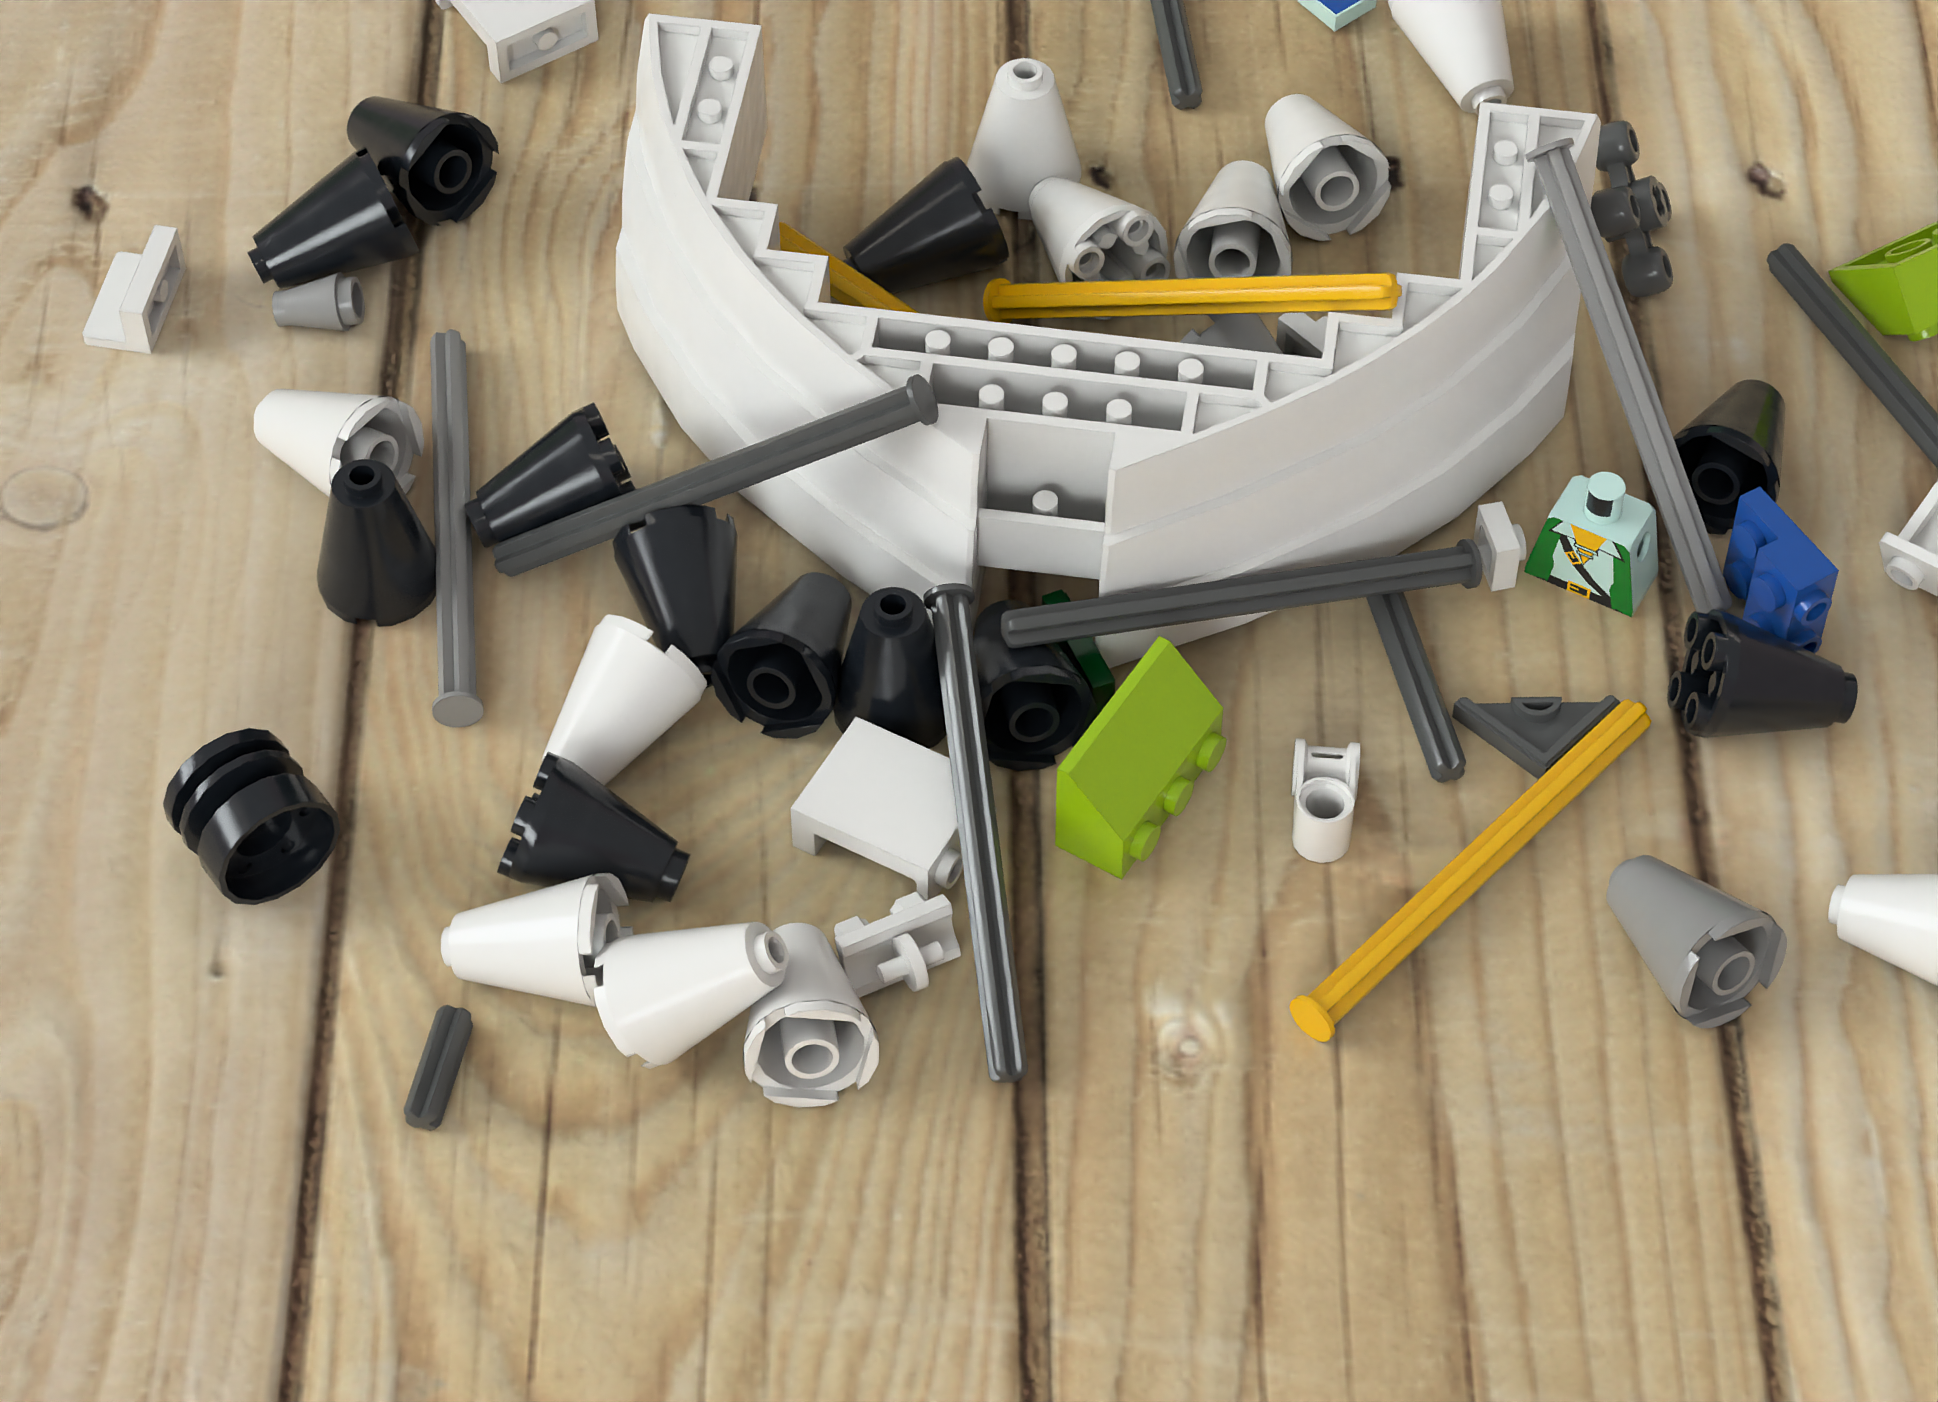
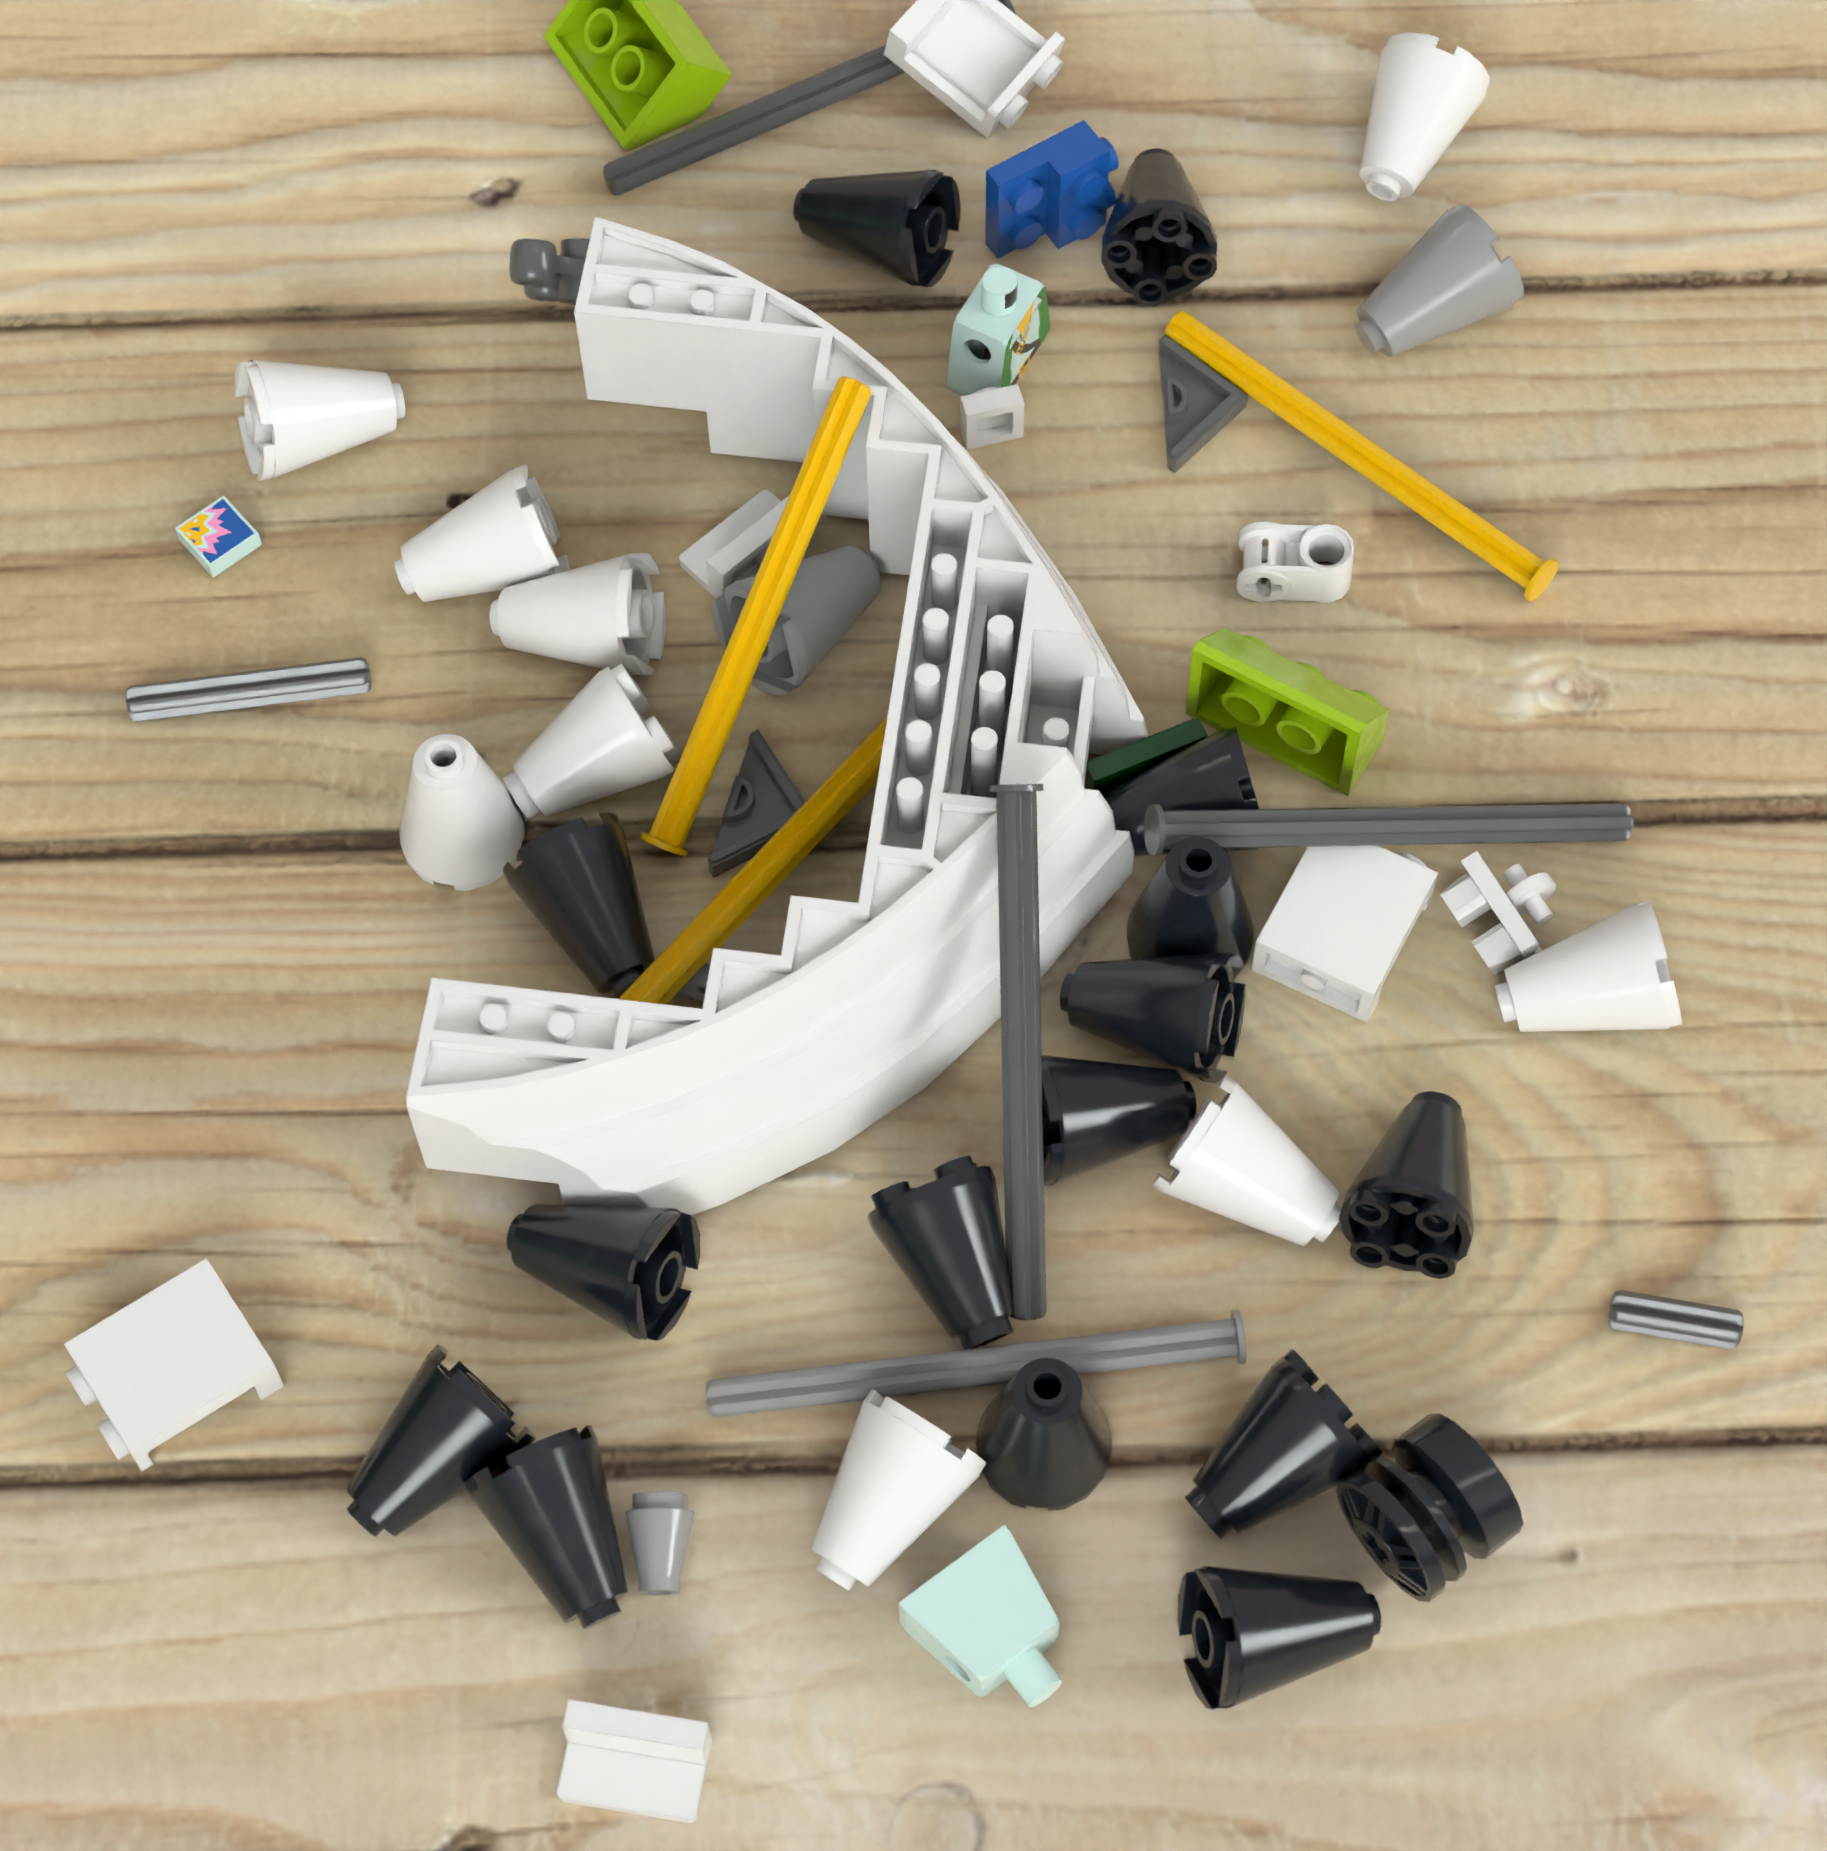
camera: 90 degrees left, 10 degrees up
(159, 692) = (1268, 1629): none -> black cone
(212, 517) = (987, 1620): none -> light aqua torso
(339, 726) = (1279, 1451): none -> black cone
(540, 939) = (1545, 1215): white cone -> none
(562, 263) = (611, 1260): none -> black cone
(683, 985) = (1609, 1059): white cone -> none
(1242, 596) = (1022, 443): dark grey axle -> none
(1418, 686) = (1140, 493): dark grey axle -> none
(1631, 376) = (726, 243): light grey axle -> none

